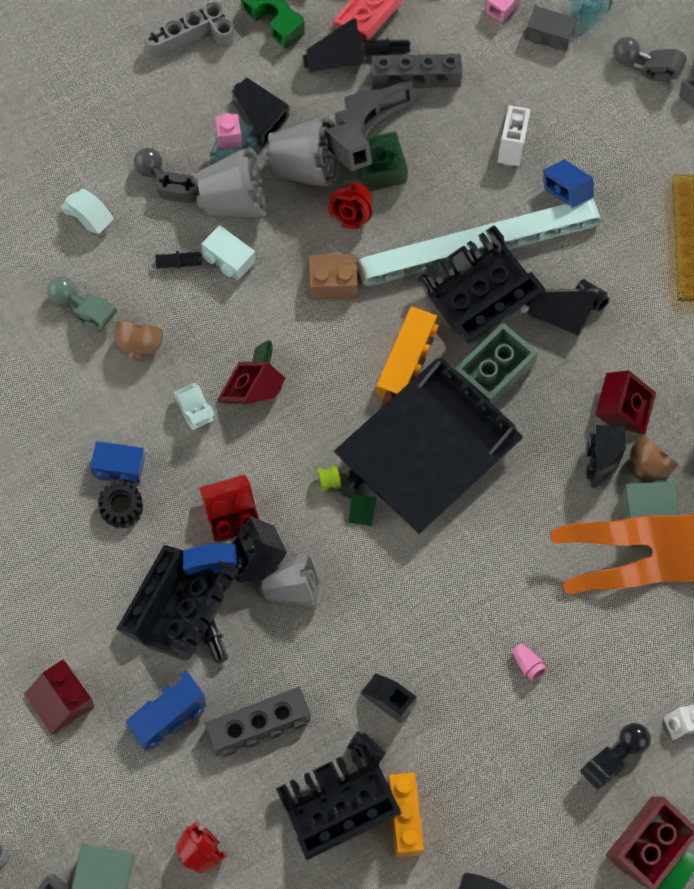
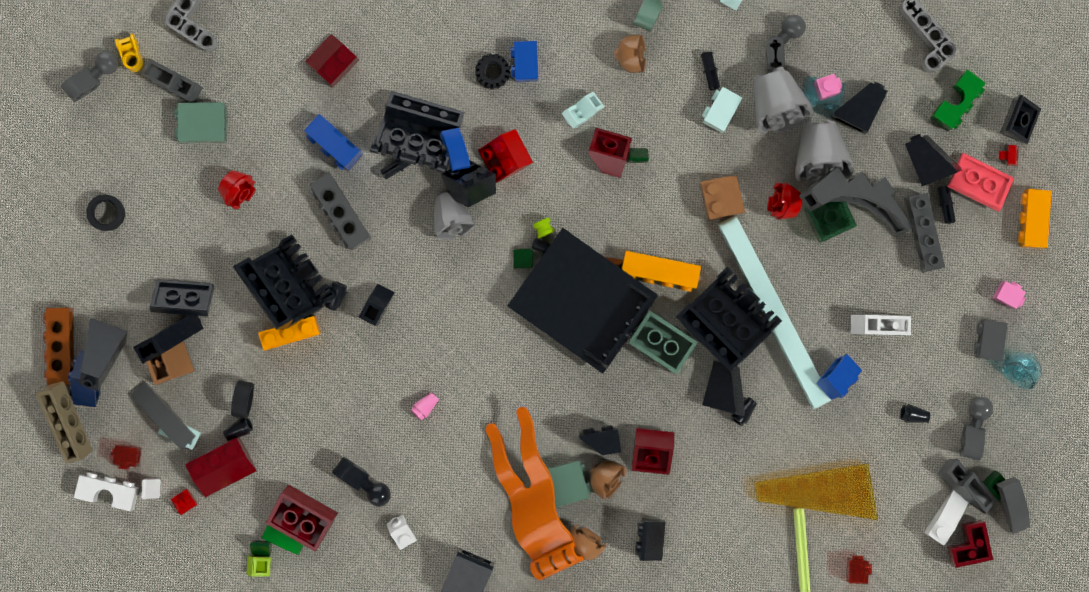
camera: 80 degrees right, 20 degrees up
(622, 120) = (913, 414): none -> black cone

